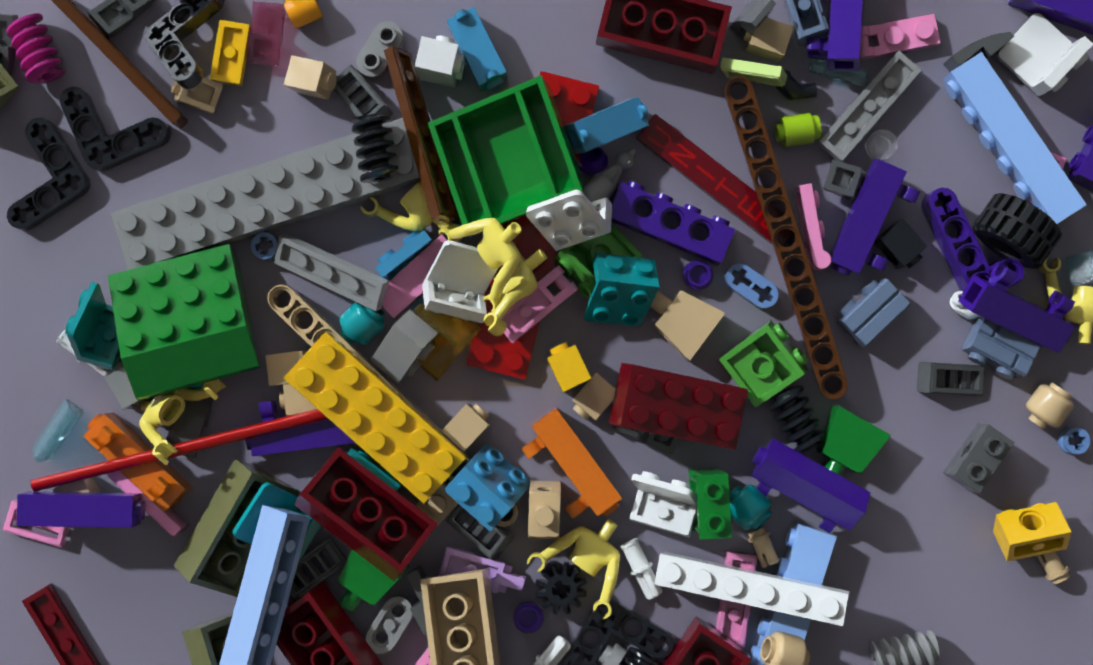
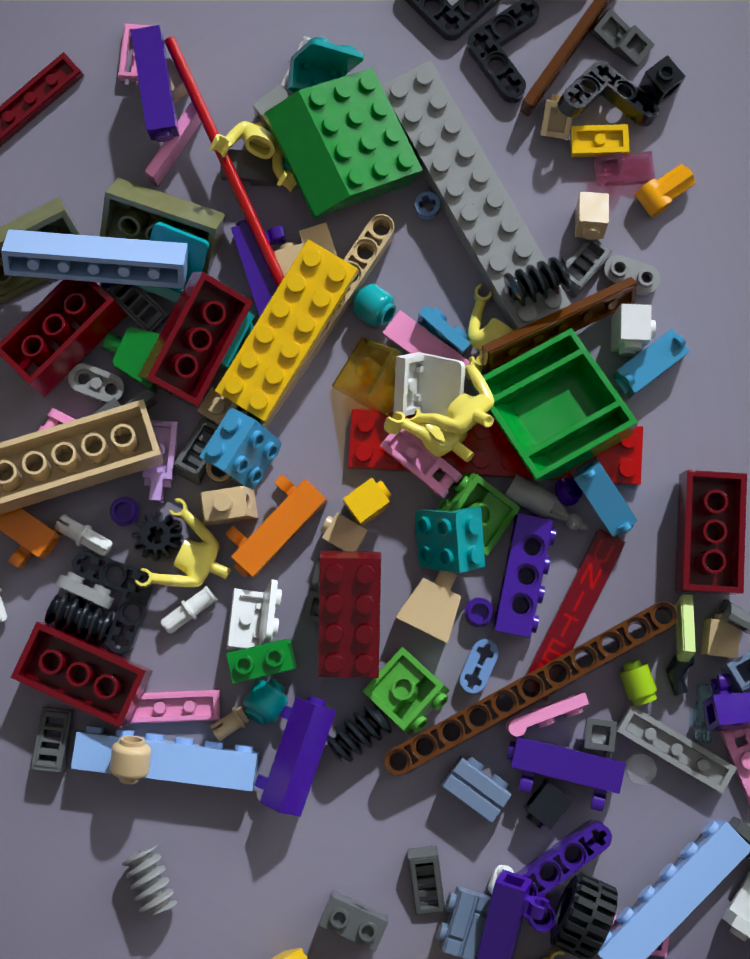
camera: 80 degrees right, 5 degrees down
(56, 431) = (222, 53): clear light blue slope -> none
(156, 480) = (192, 148): orange brick -> none
(331, 272) = (414, 267): light grey plate -> none
(404, 347) = (357, 346): light grey brick -> none
(466, 426) = (294, 419): tan brick -> none
(571, 219) = (507, 474): white bracket -> none
(752, 588) = (188, 717): white brick -> none
(850, 441) = (346, 789): green torso -> none

